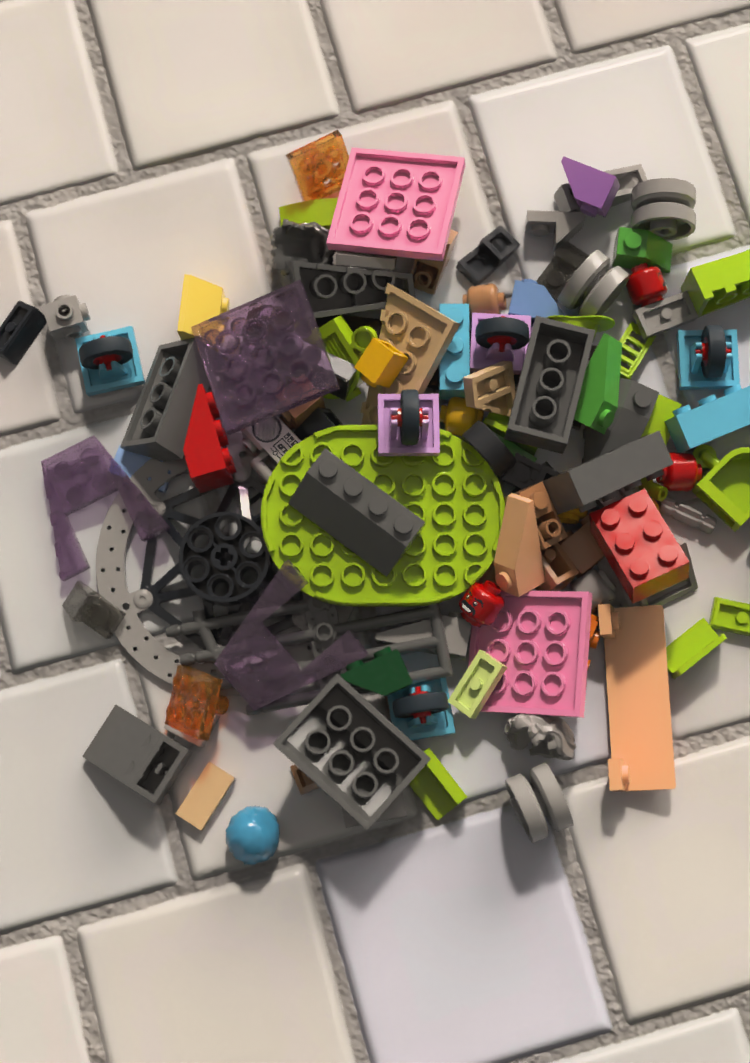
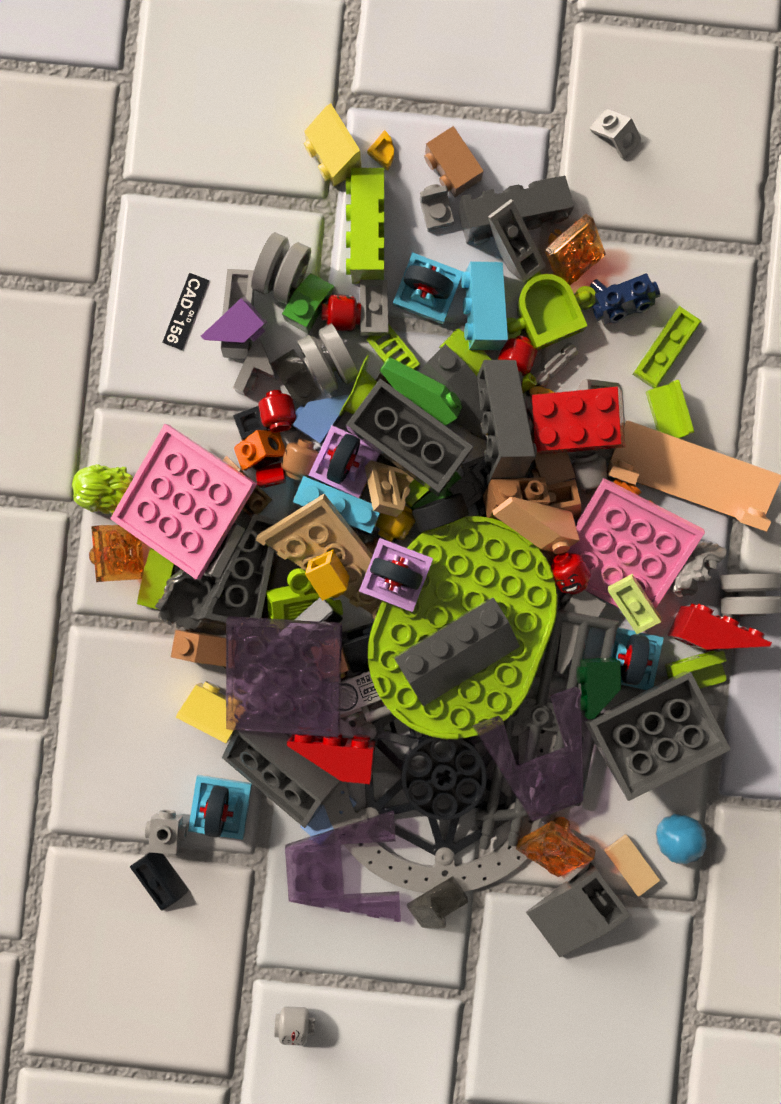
camera: 70 degrees left, 10 degrees up
(258, 272) = (199, 647): none -> medium nougat slope
(377, 128) = (100, 487): none -> lime hair
(454, 283) = (270, 475): none -> red slope
(479, 257) = (256, 448): none -> orange bracket
(479, 771) = (702, 630): none -> red slope
(522, 262) = (277, 411): none -> red head
(582, 144) = (185, 311): none -> black sticker

